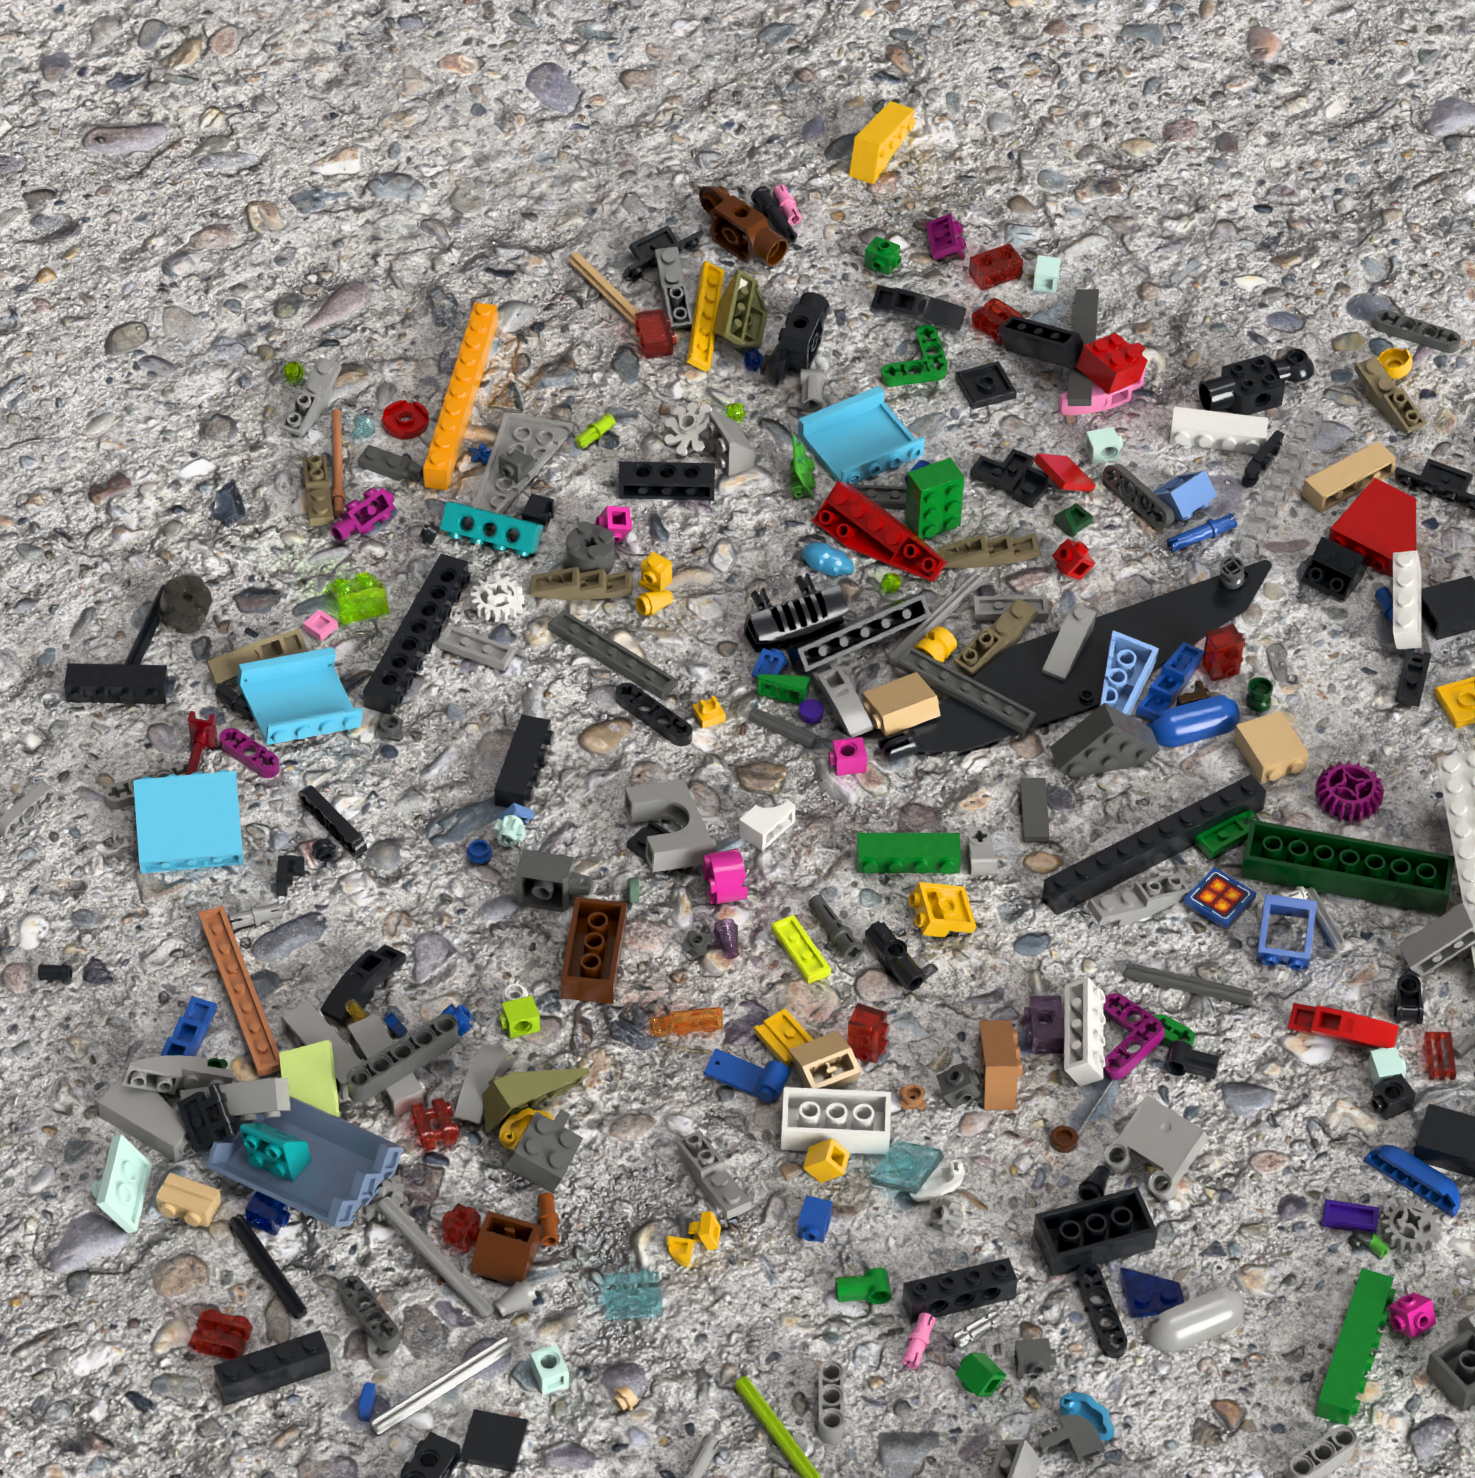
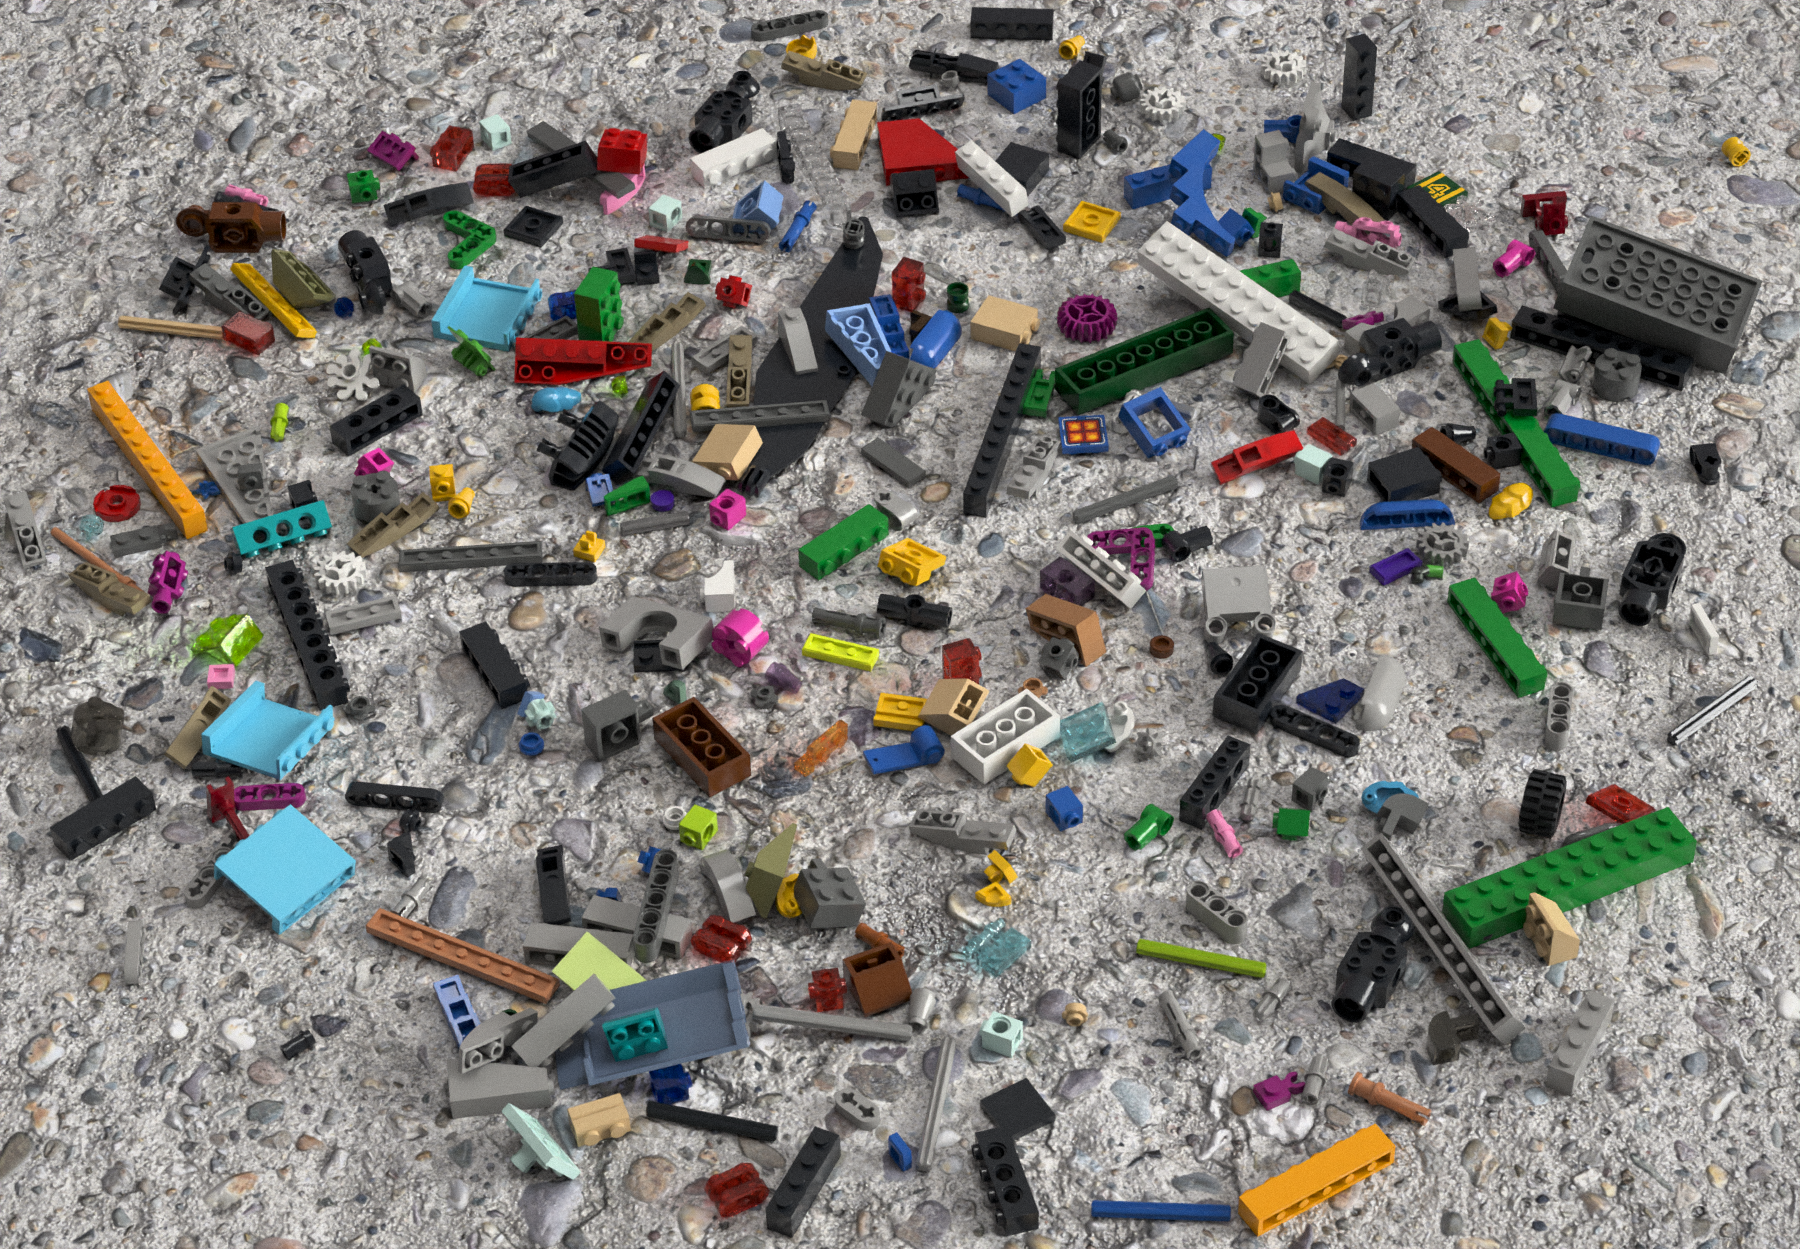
camera: 40 degrees left, 5 degrees down
(199, 1119) = (554, 1055): black plate -> none
(356, 1010) = (577, 905): clear yellow arm -> none
(371, 1311) = (800, 1089): dark grey beam -> none
(879, 141) = (272, 117): yellow wedge -> none

